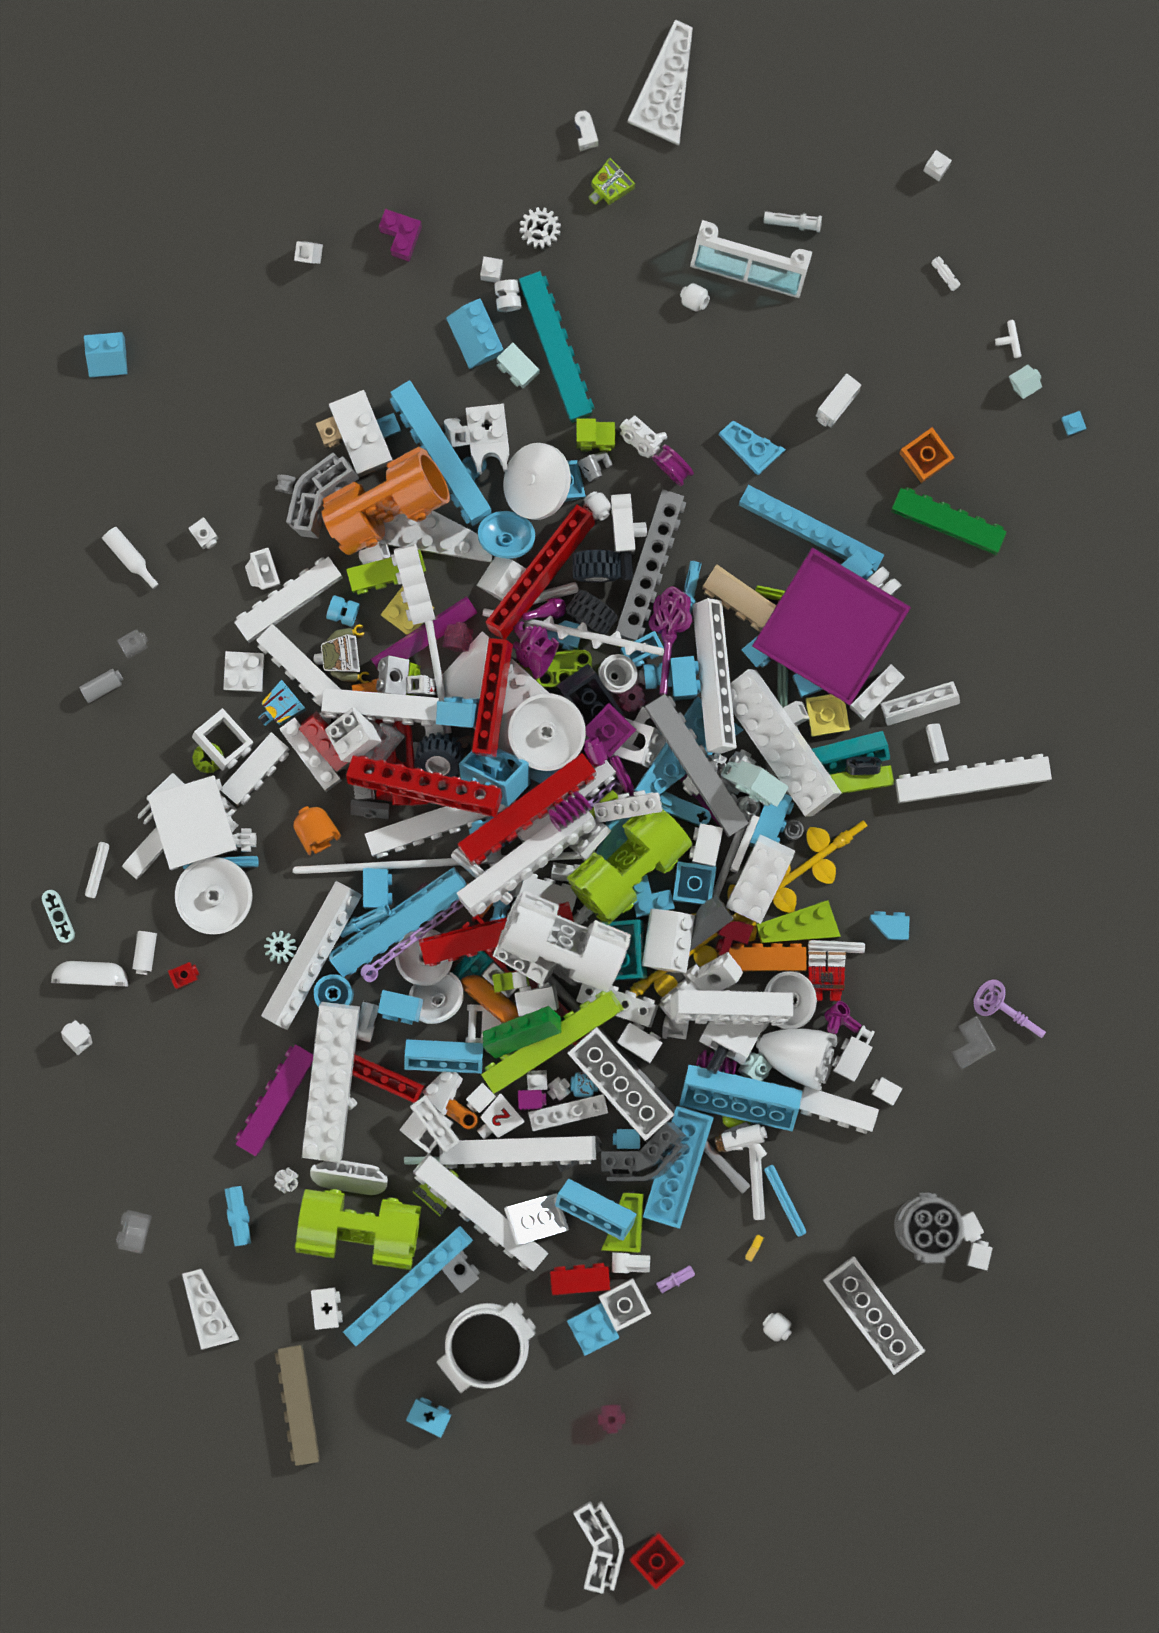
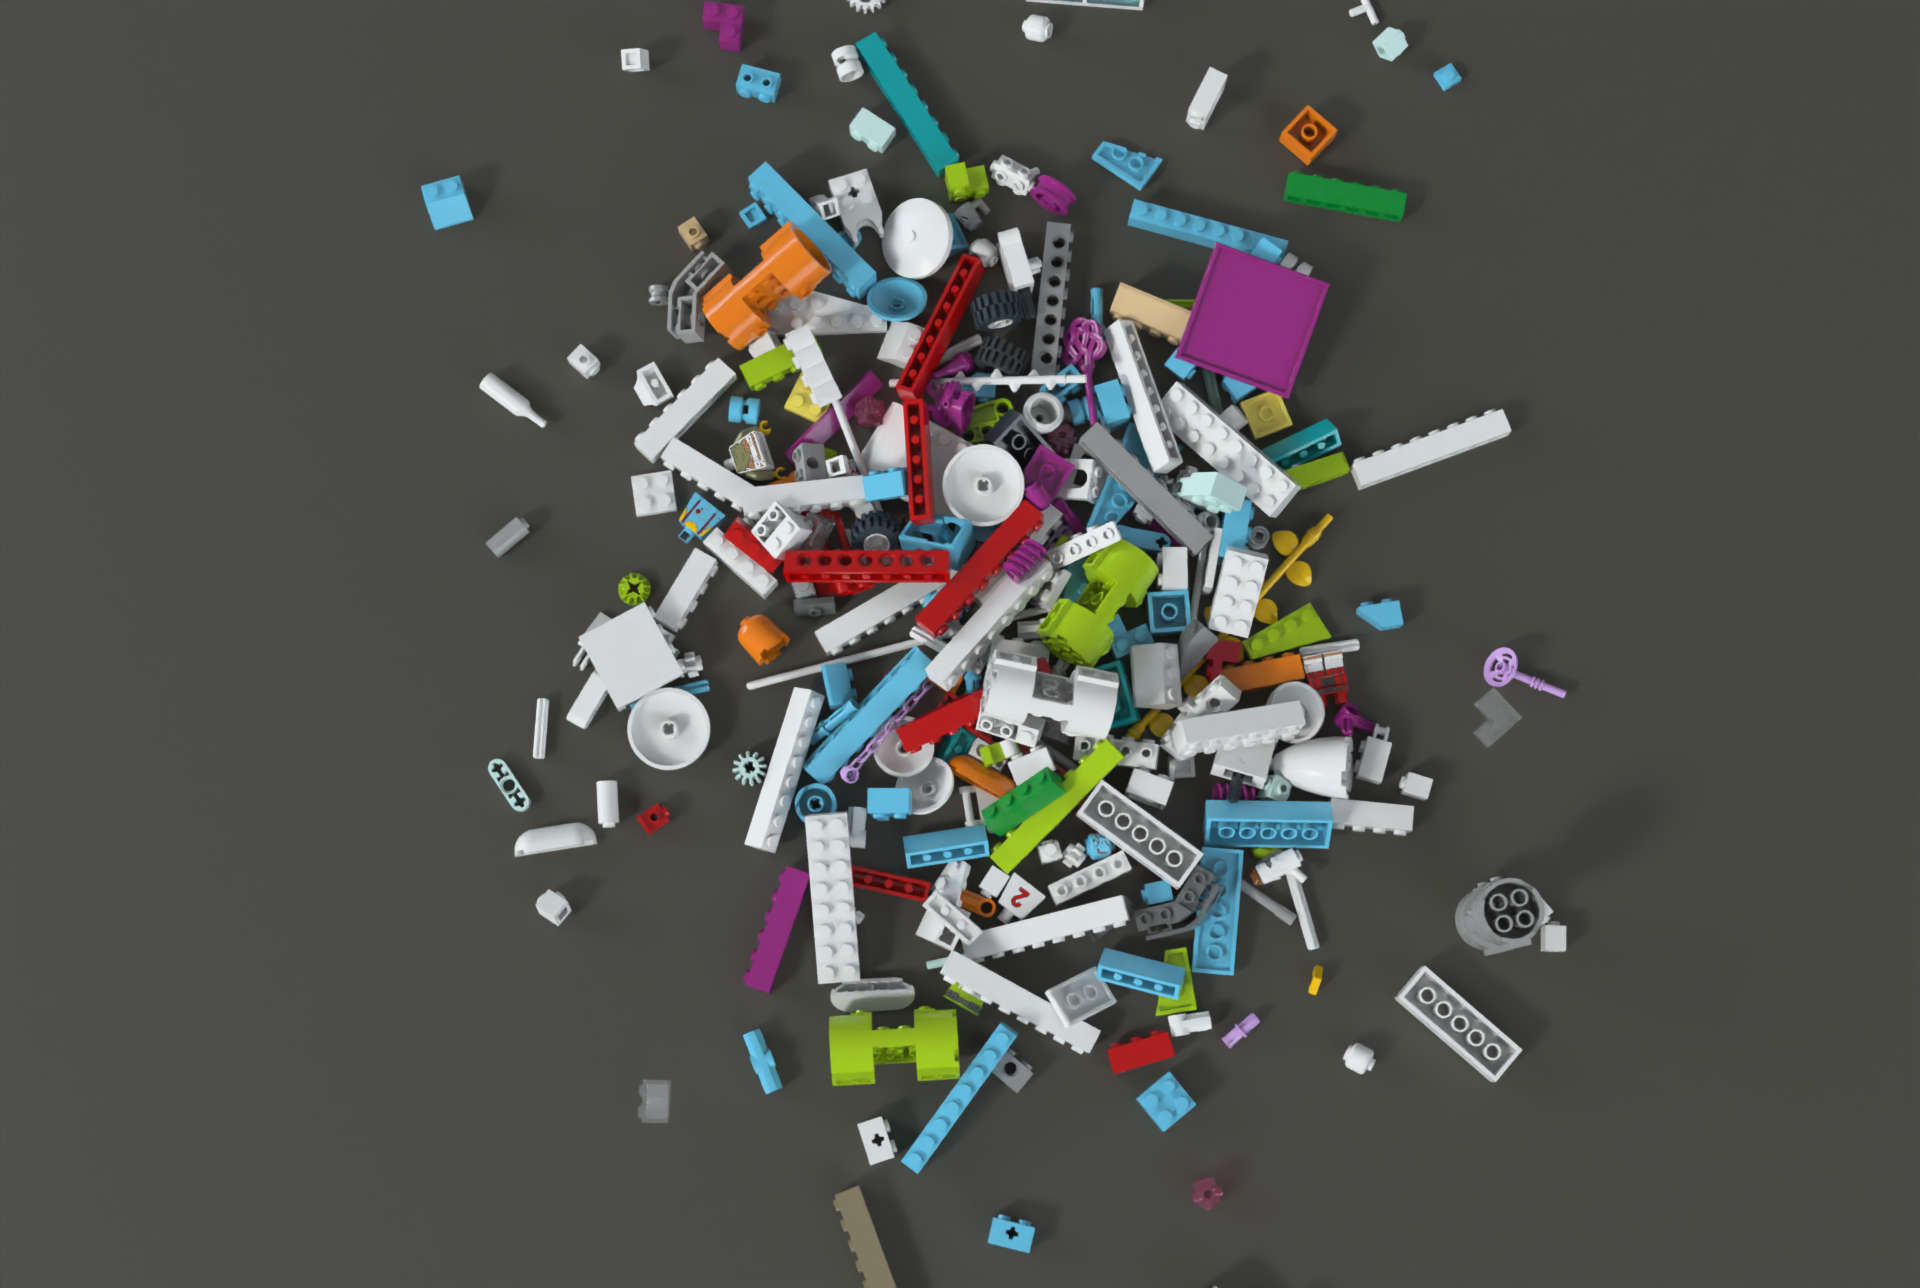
camera: 15 degrees left, 5 degrees down
(133, 643) = (532, 487): clear brick -> none
(208, 1314) = (753, 1175): white wing -> none
(211, 751) = (651, 589): white window -> none
(286, 1180) = (806, 1012): white gear -> none
(360, 433) = (726, 228): white brick -> none
(419, 297) = (758, 83): none -> medium azure brick
(475, 334) = (822, 107): medium azure slope -> none
(491, 269) = (825, 41): white brick -> none
(513, 1315) = (1094, 1115): white cylinder -> none
(531, 1099) = (1048, 871): magenta brick -> none
(624, 1304) = (1194, 1068): white brick -> none
(785, 1200) = (1336, 923): medium azure axle -> none
(863, 765) = (1316, 455): black beam -> none
(877, 692) = (1311, 381): white brick -> none
(920, 703) = (1358, 384): white slope -> none
(937, 743) = (1383, 421): white slope -> none

